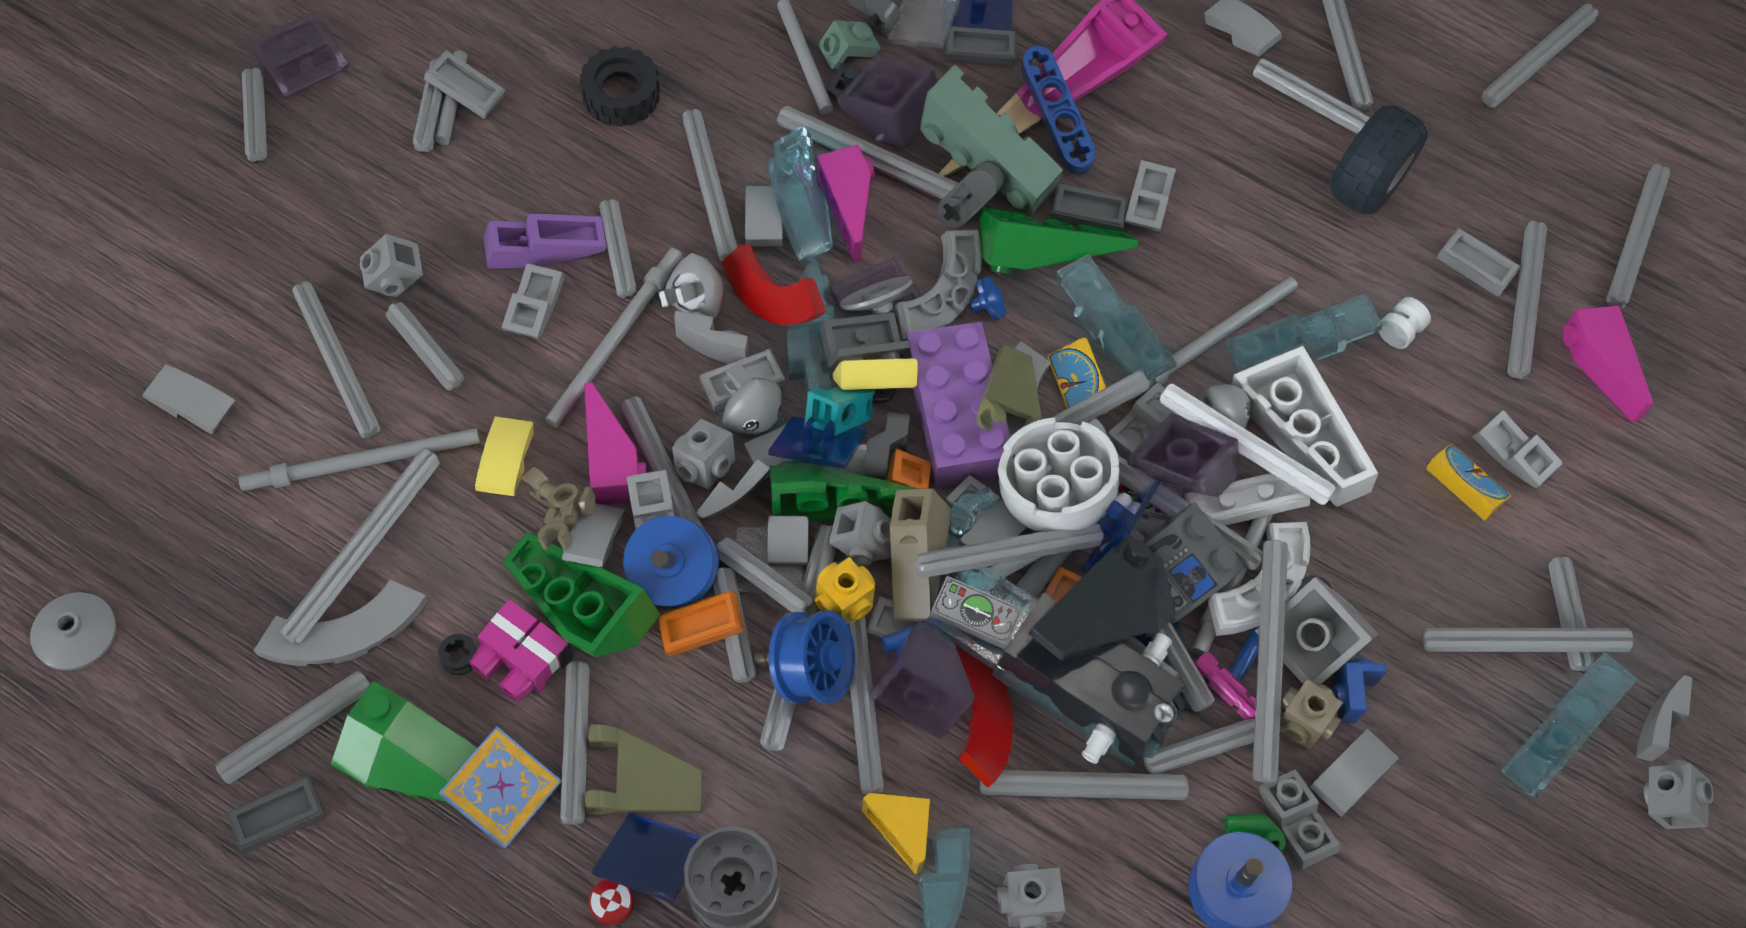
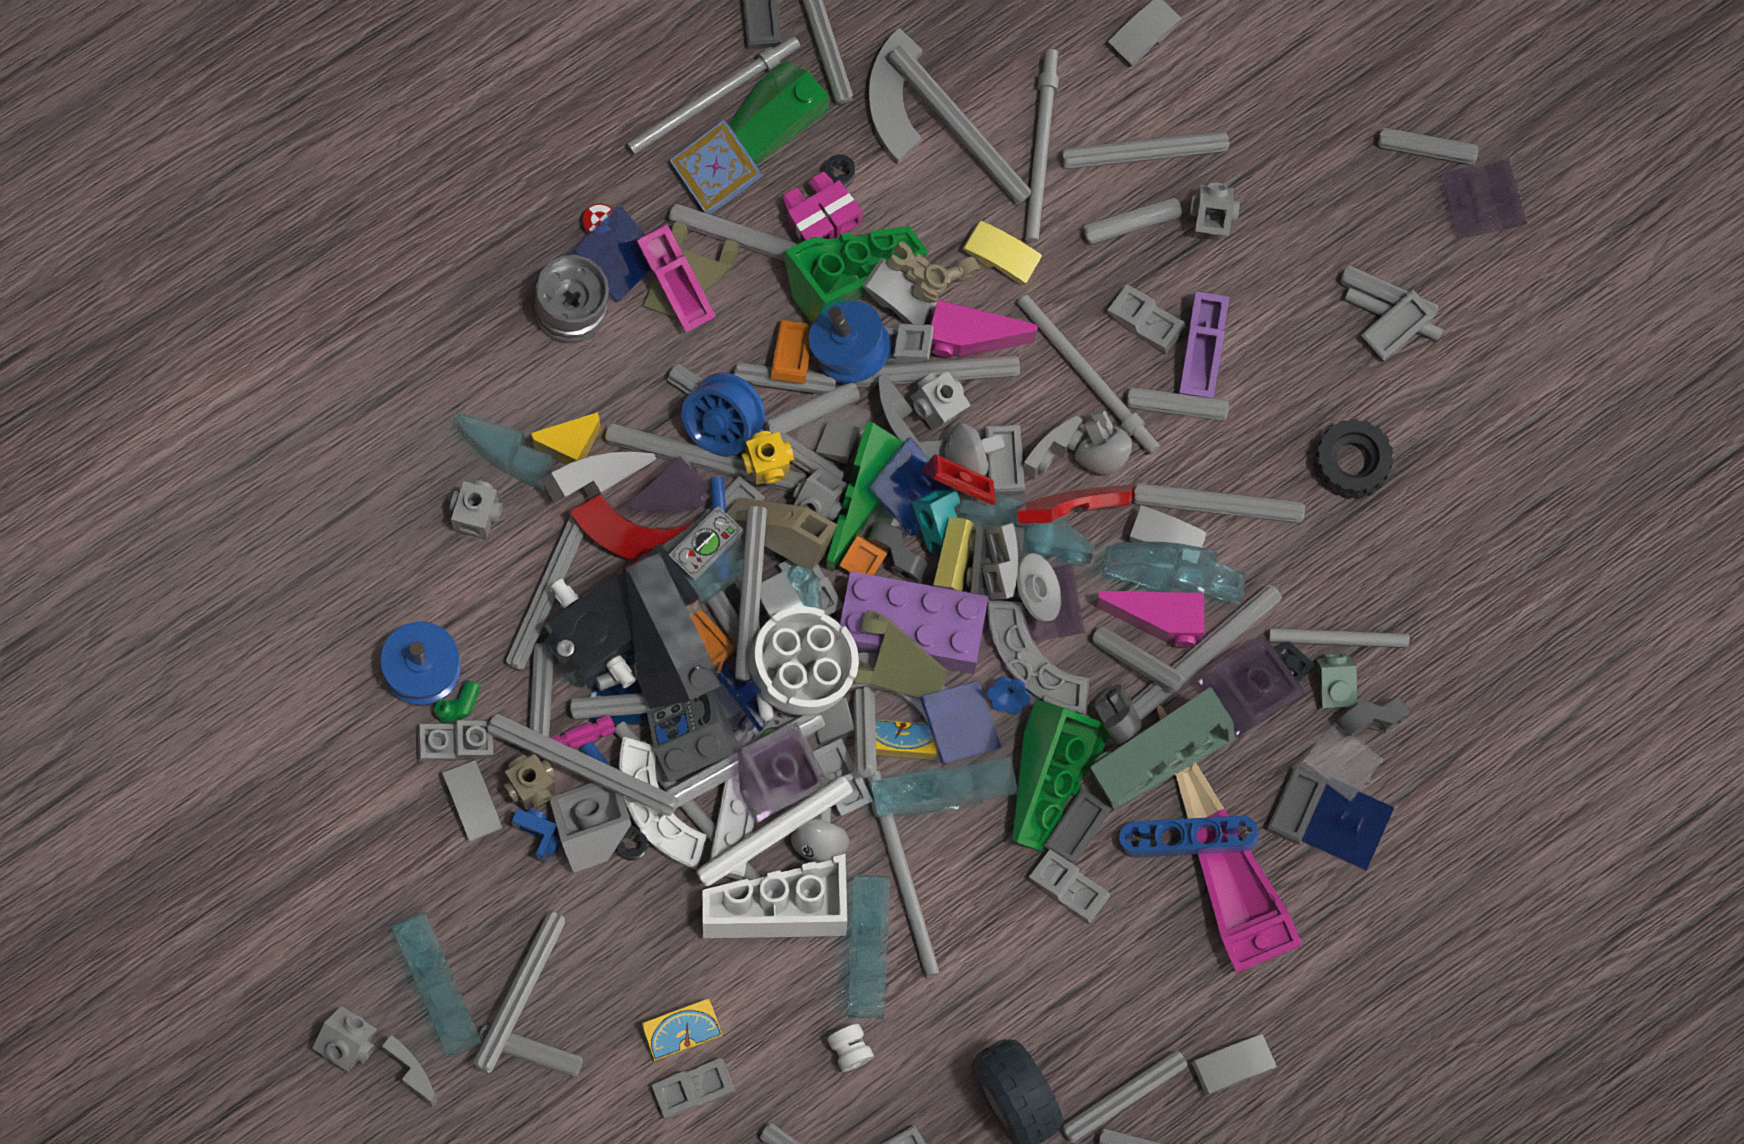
camera: 110 degrees right, 10 degrees up
(338, 785) = (766, 60): none -> light grey bar
(657, 781) = (675, 277): none -> dark pink slope
(795, 392) = (960, 478): none -> red slope
(870, 320) = (1003, 571): none -> light grey slope
(904, 199) = (1138, 659): none -> light grey axle
(937, 772) = (594, 473): none -> light grey slope
(1041, 328) = (960, 722): none -> clear blue piece

